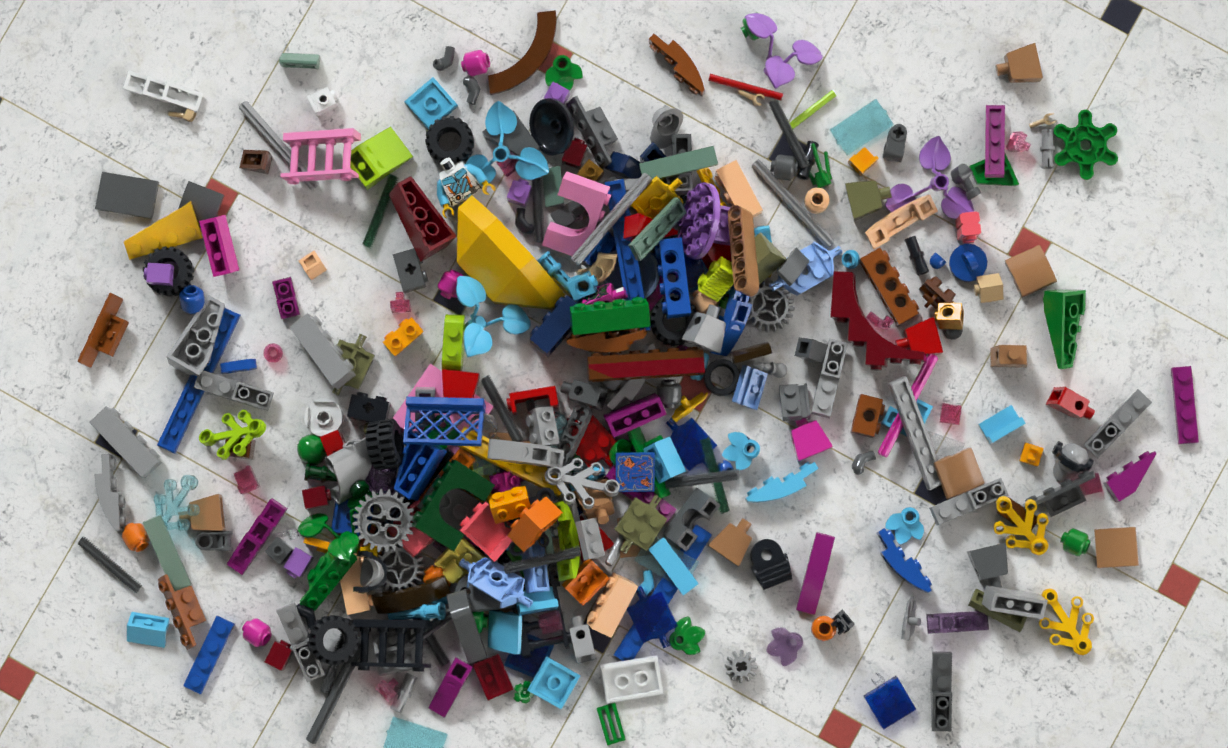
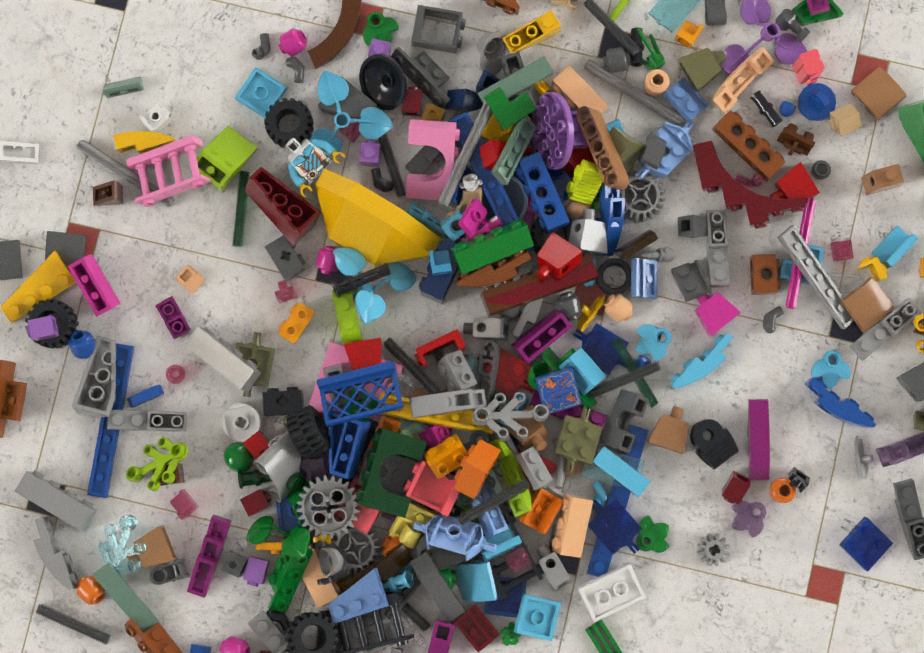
camera: 15 degrees left, 0 degrees up
(189, 115) = (30, 169): tan hand -> none
(304, 119) = (141, 140): none -> yellow slope
(389, 616) = (360, 598): none -> medium blue wing
(476, 312) = (351, 284): none -> black pin
(551, 186) = (399, 139): sand green slope -> none
(555, 317) = (440, 262): none -> dark azure panel
(599, 283) = (472, 217): none -> dark pink plate
(602, 80) = (423, 11): none -> dark grey window
(607, 248) = (470, 182): none -> white plate
(662, 191) = (508, 112): none -> green tile
(669, 344) = (557, 257): none -> torso
(710, 119) = (533, 33): none -> yellow slope
(717, 408) = (618, 307): none -> light nougat head
(779, 613) = (735, 488): none -> dark red brick
(840, 225) = (685, 100): none -> medium blue plate
(850, 259) = (700, 129): medium azure plate -> none
(952, 322) = (818, 149): pearl gold brick -> none
(978, 441) = (877, 268): none -> yellow bracket

